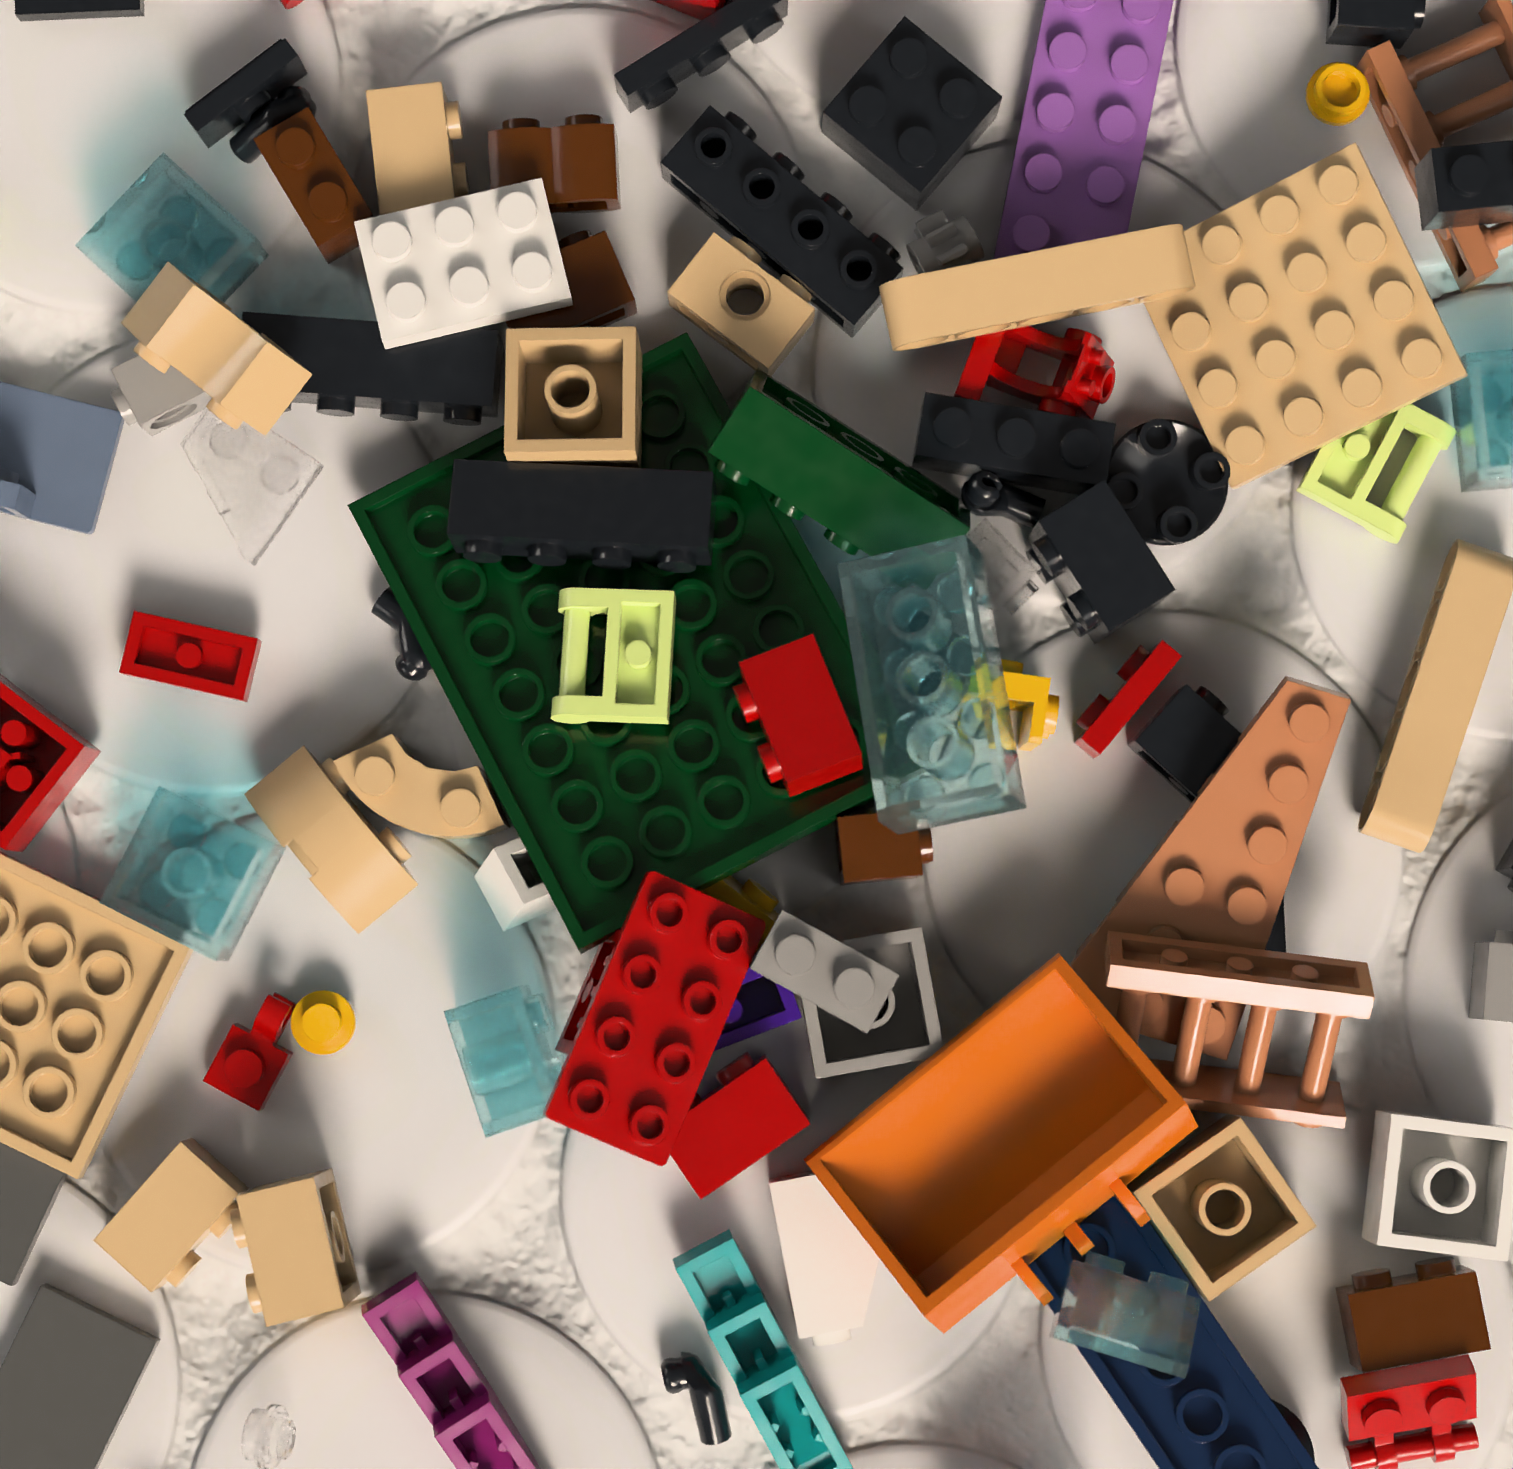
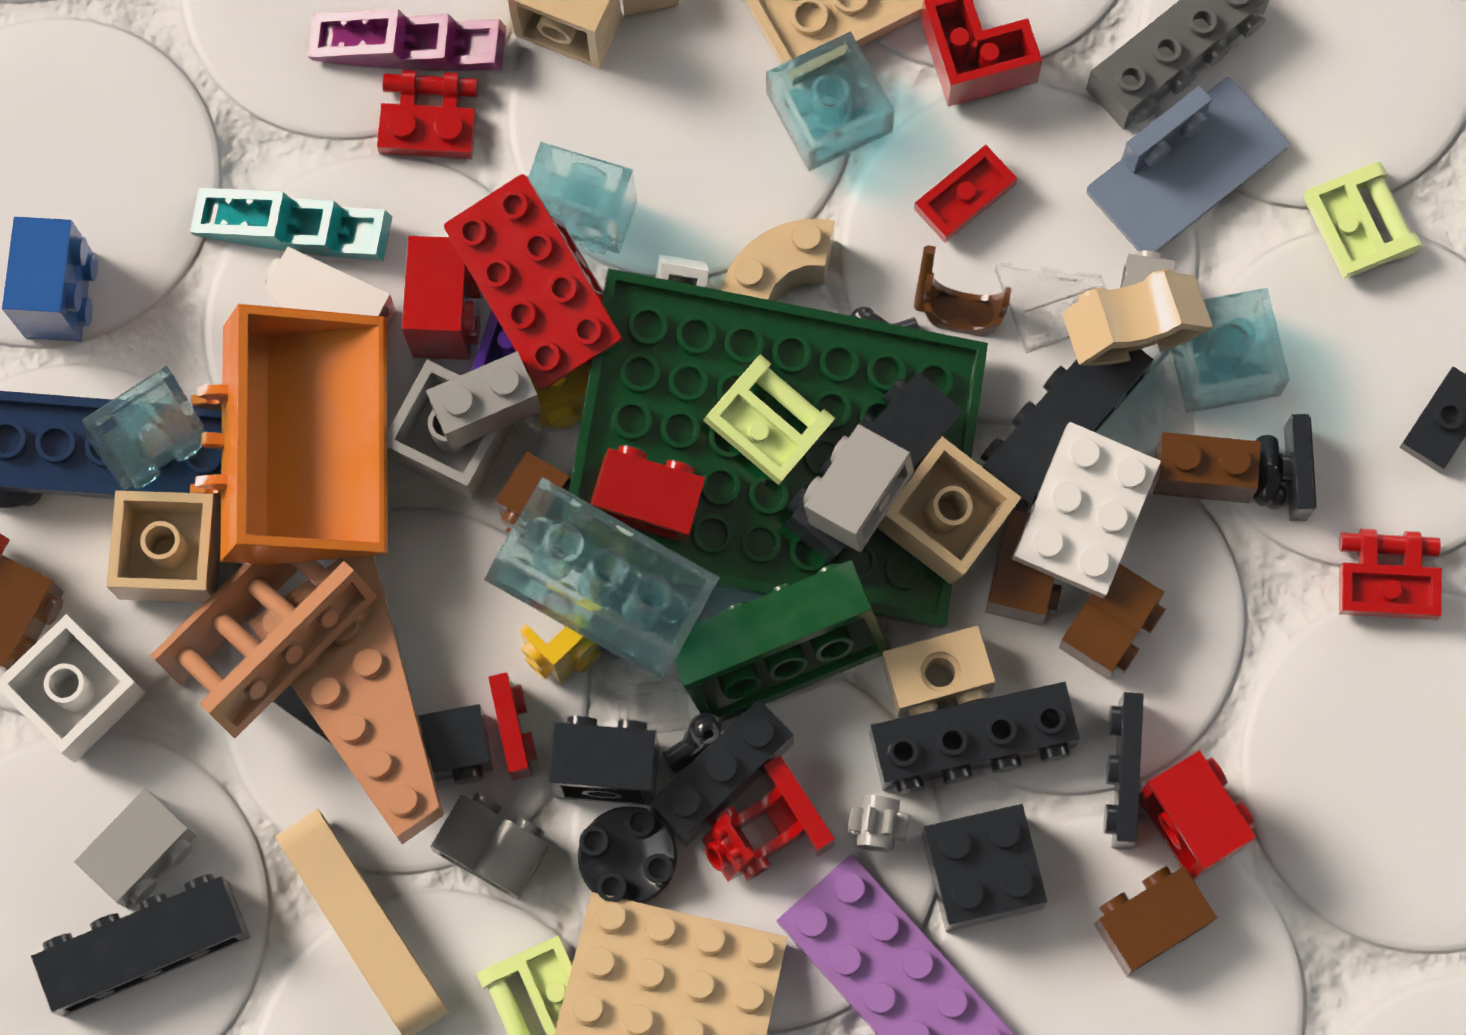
camera: 130 degrees right, 10 degrees down
(251, 1059) = (699, 66): red plate -> none
(323, 568) = (956, 309): none -> reddish brown helmet
(323, 1022) = (687, 119): yellow plate -> none
(348, 858) = (767, 196): tan brick -> none
(414, 146) = (1183, 542): tan brick -> none
(545, 1305) = (424, 129): none -> red plate
(631, 491) = (857, 487): none -> light grey brick
(705, 1394) = (302, 179): black arm -> none
(1037, 287) = (805, 851): tan beam -> none
(1262, 623) = (490, 845): none -> dark grey brick

